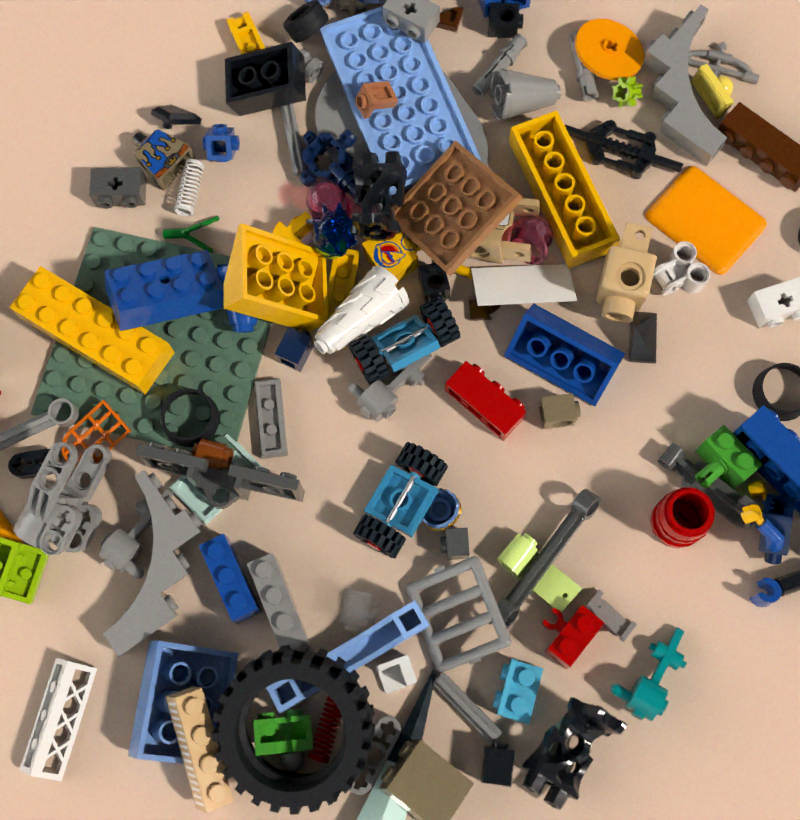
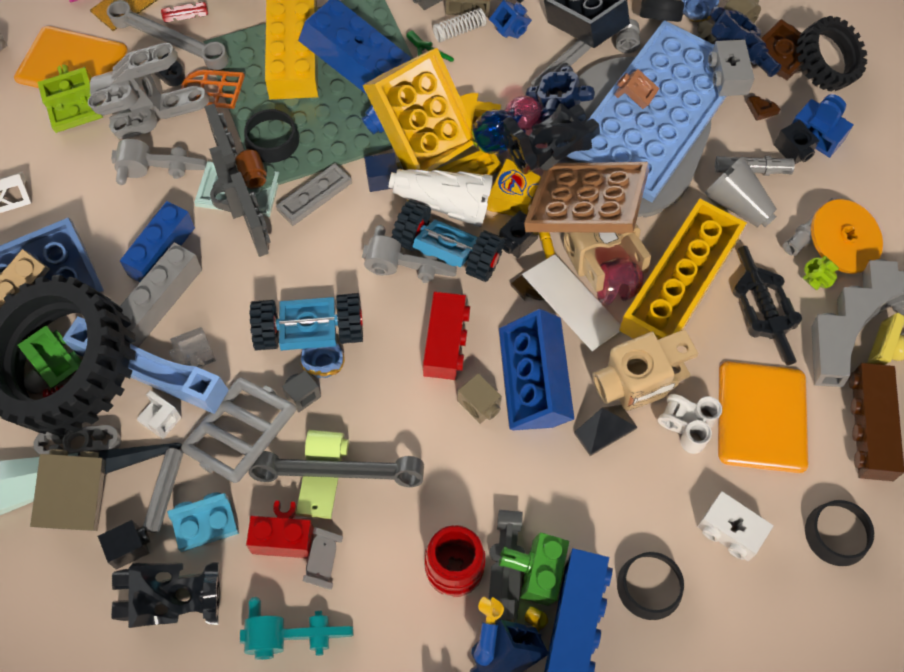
camera: 50 degrees right, 10 degrees down
(151, 606) = (136, 194): light grey arch -> none

